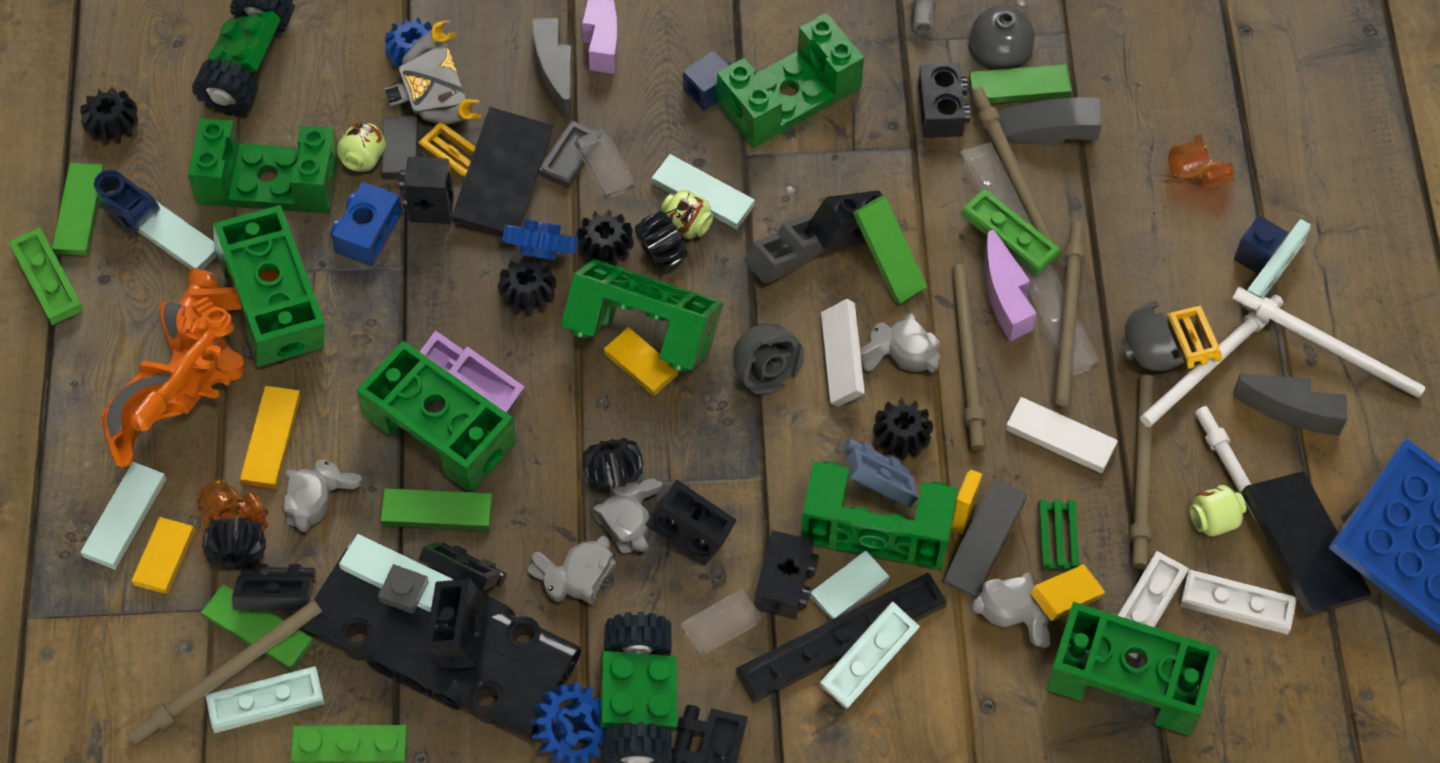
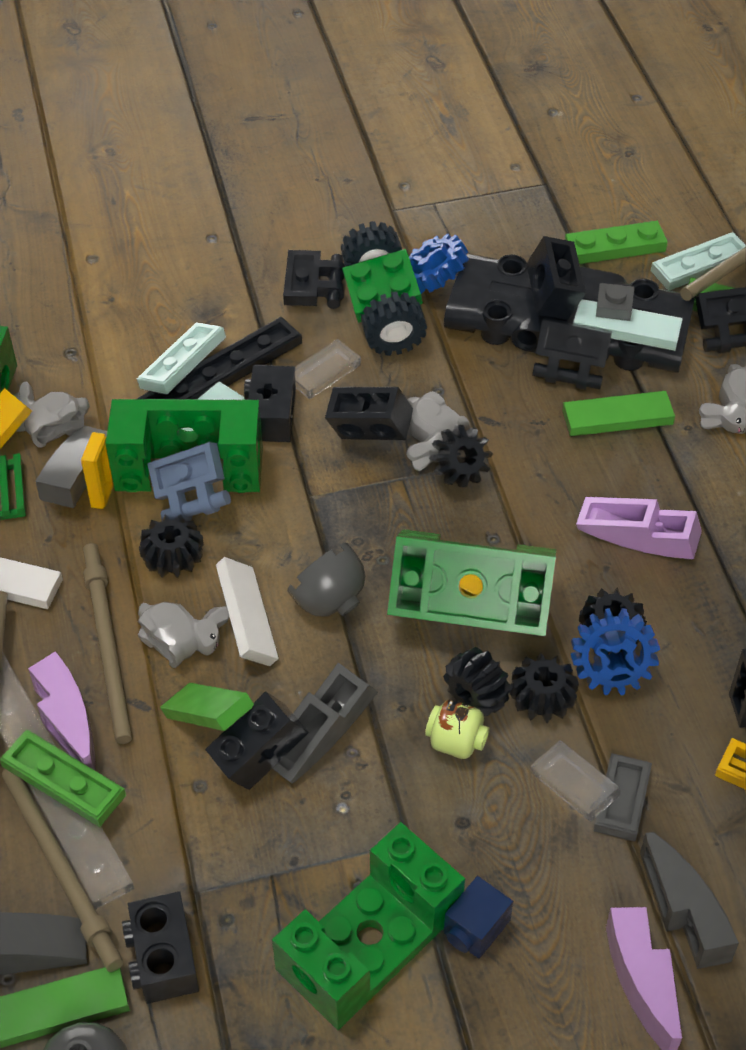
camera: 170 degrees right, 10 degrees down
(466, 434) = (690, 459): green plate -> none
(502, 172) = (693, 753): black tile -> none
(579, 575) = (463, 378): light grey animal -> none
(726, 202) = (447, 776): light aqua tile -> none

